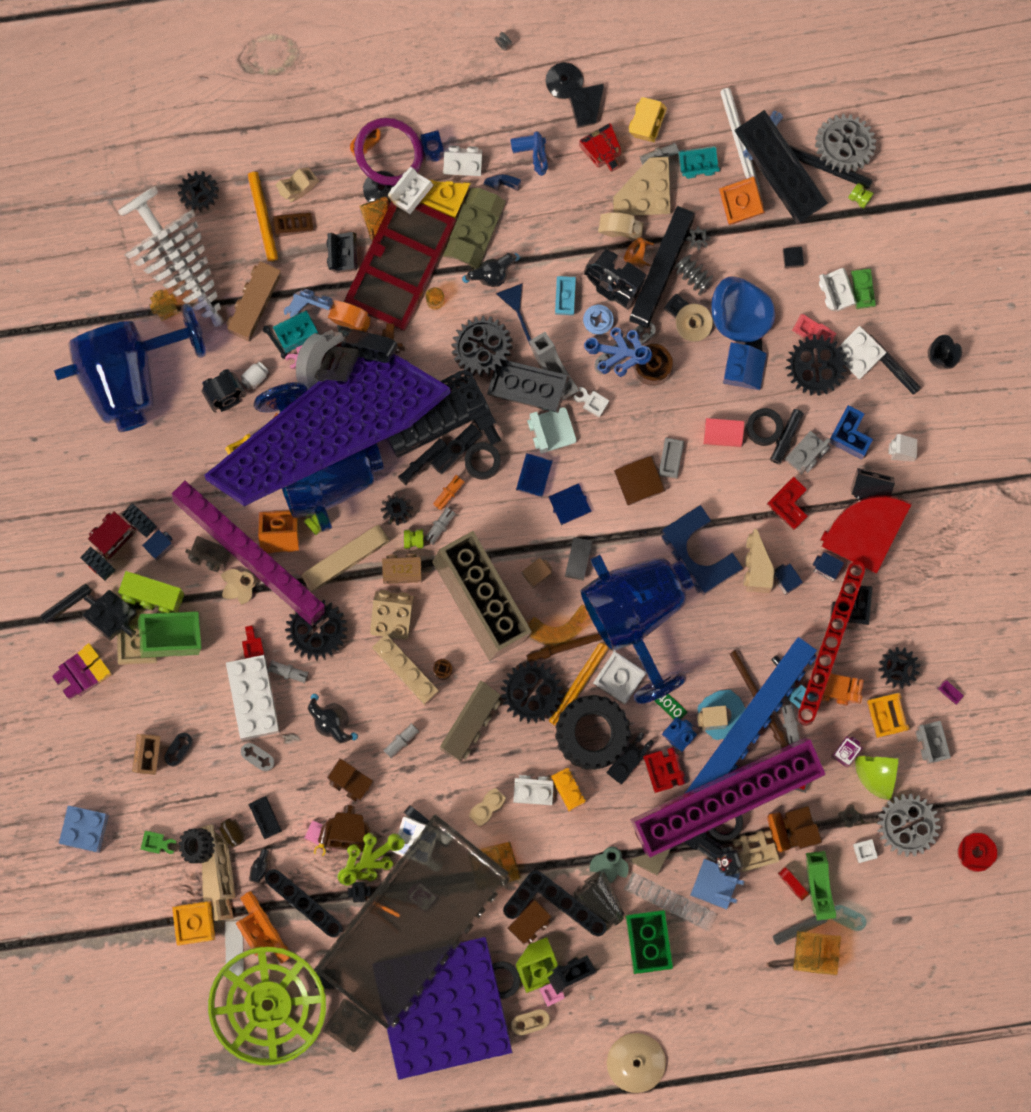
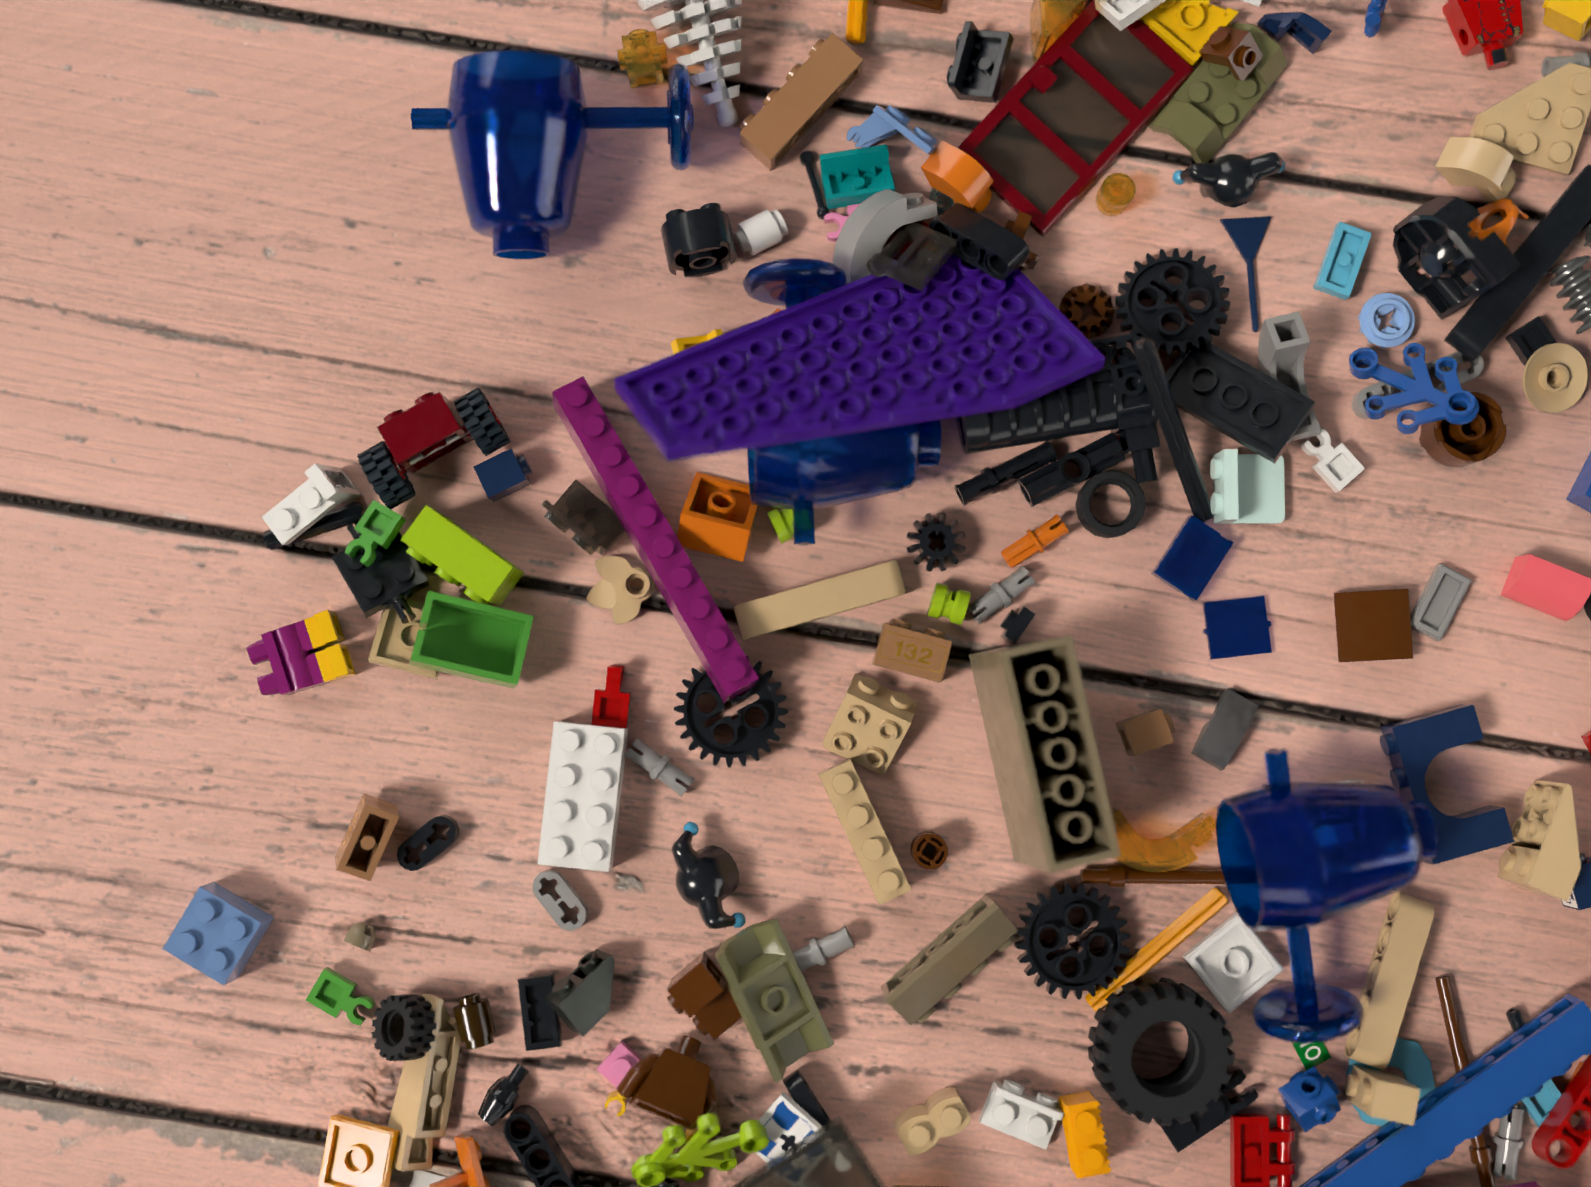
camera: 15 degrees right, 5 degrees up
(61, 591) = (310, 502): none -> white bracket
(101, 592) = (377, 527): none -> bright green plate
(158, 809) = (361, 936): none -> dark tan hinge
(286, 799) = (585, 994): none -> pearl dark grey slope
(384, 768) = (772, 996): none -> olive piece
(444, 370) = (1103, 307): none -> reddish brown gear
(452, 536) = (1015, 624): none -> black plate
(472, 205) = (1232, 49): none -> reddish brown bracket
(499, 412) = (1173, 428): none -> black axle
(703, 660) = (1390, 979): none -> tan beam

